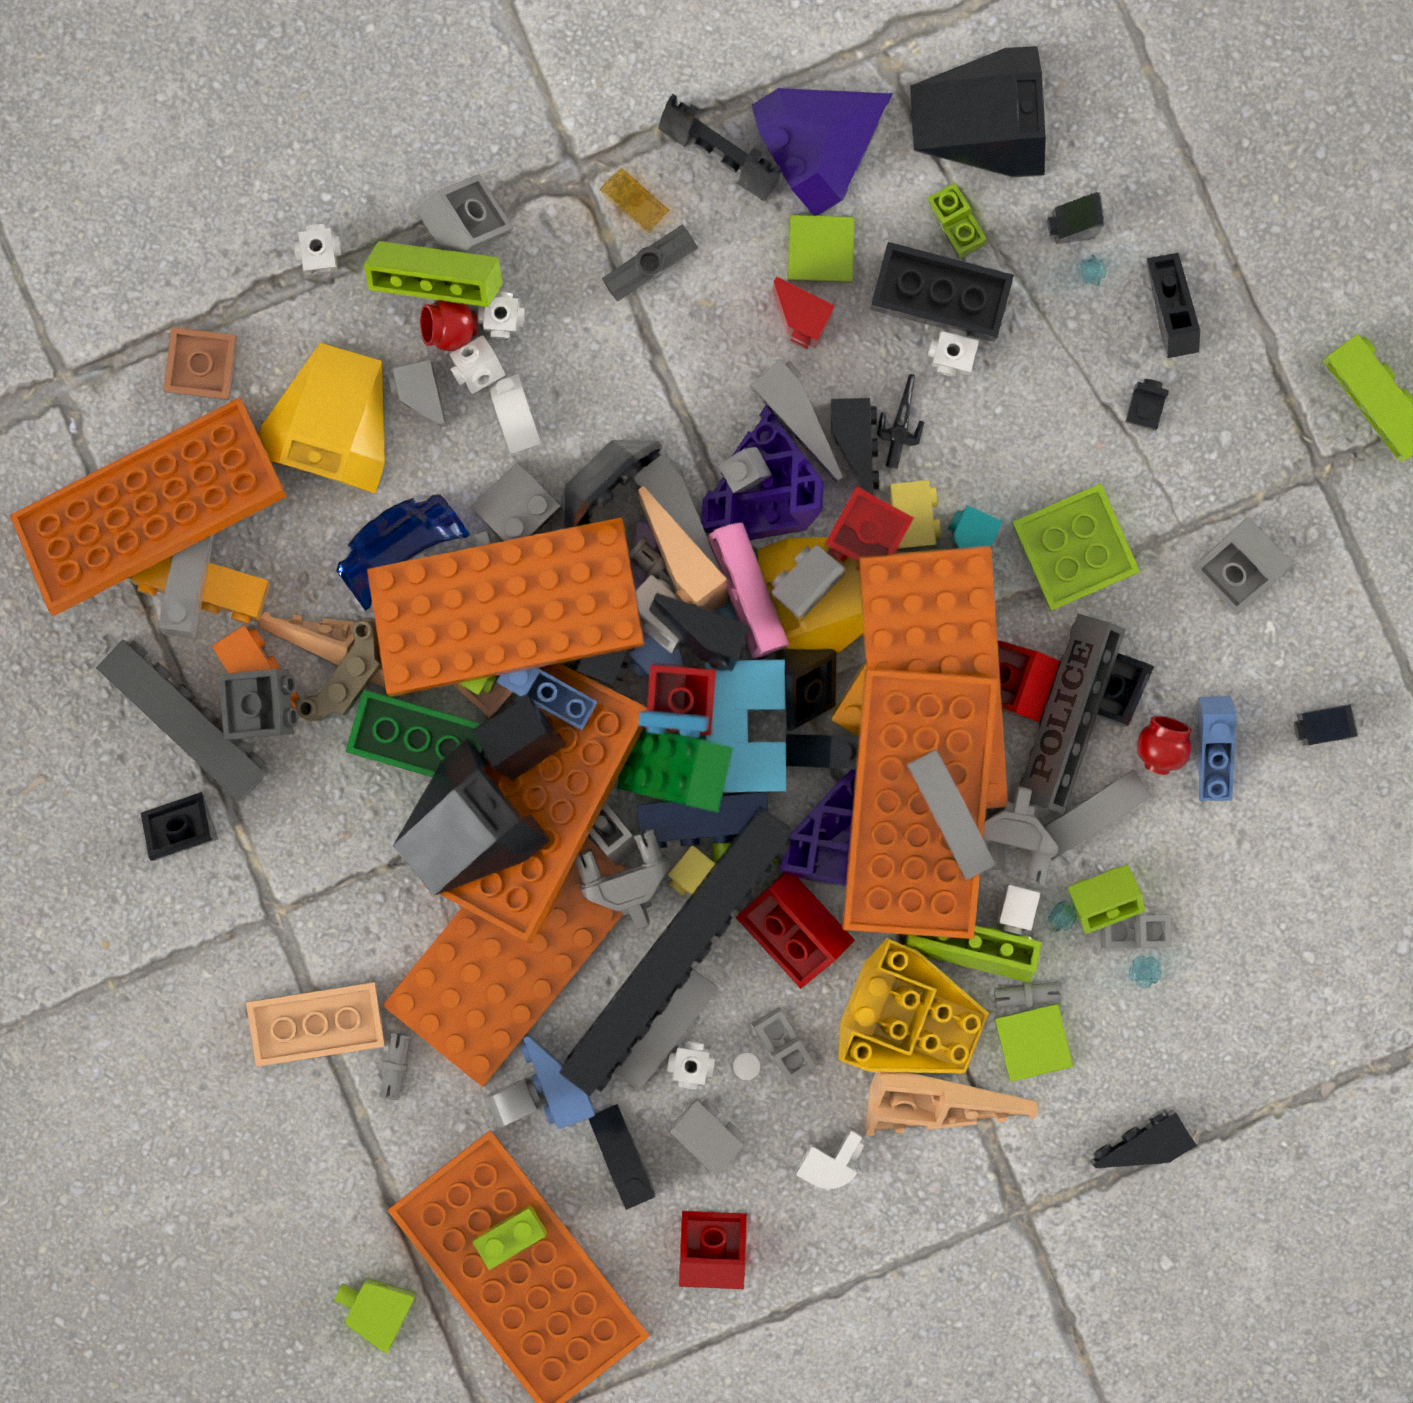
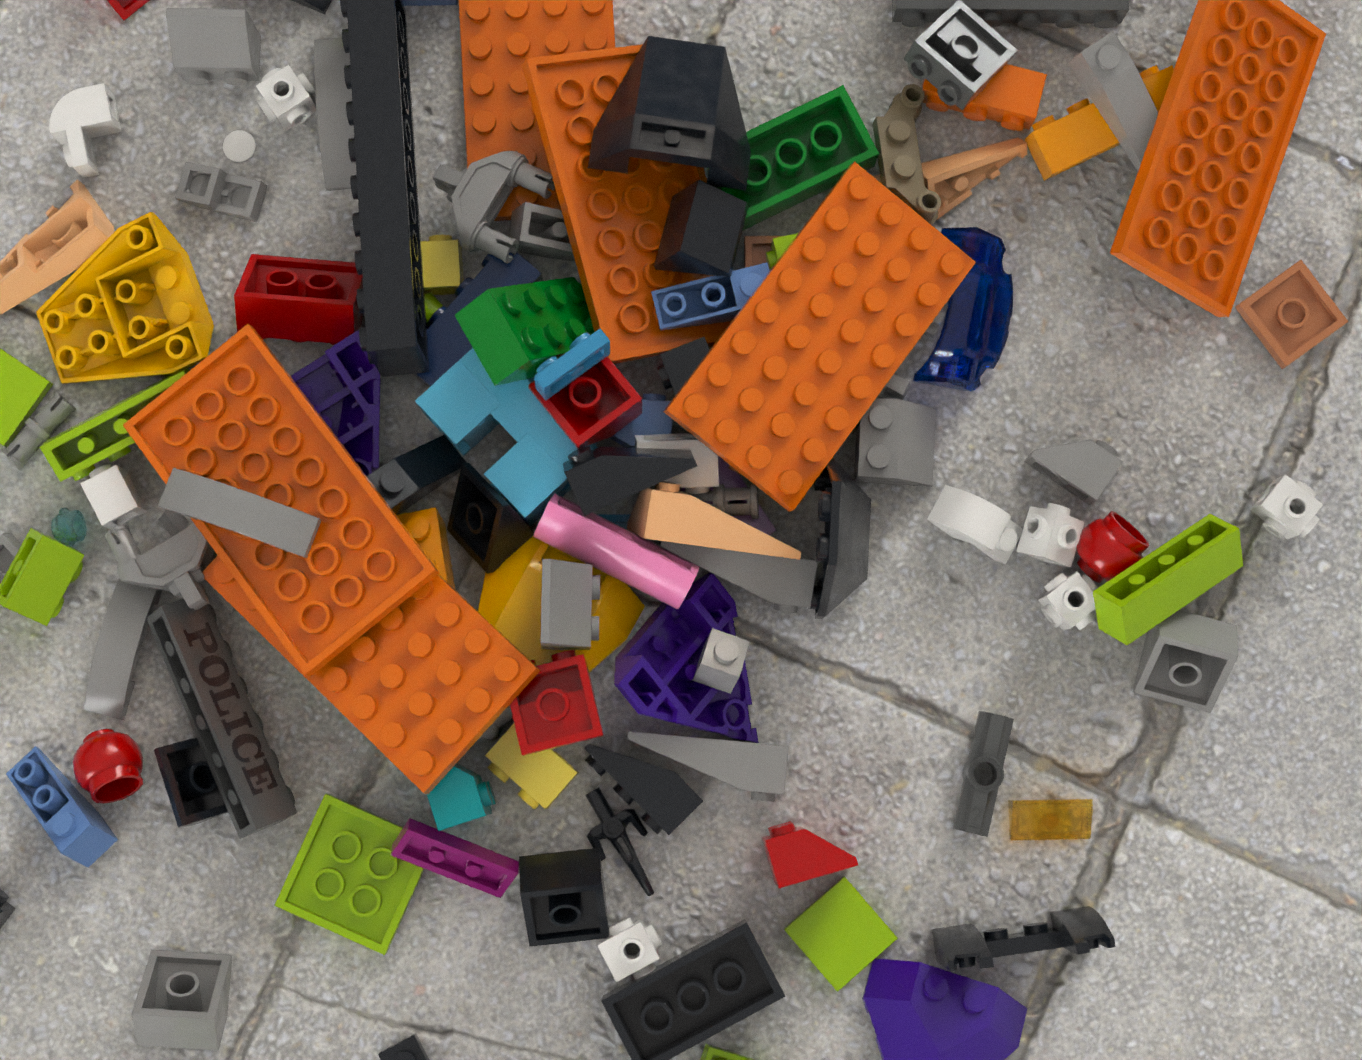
camera: 135 degrees right, 5 degrees down
(331, 419) = (1129, 369): yellow wedge -> none
(964, 419) = (563, 897): none -> black slope
(1008, 500) = (455, 858): none -> magenta plate
(1025, 680) = (291, 707): red slope -> none

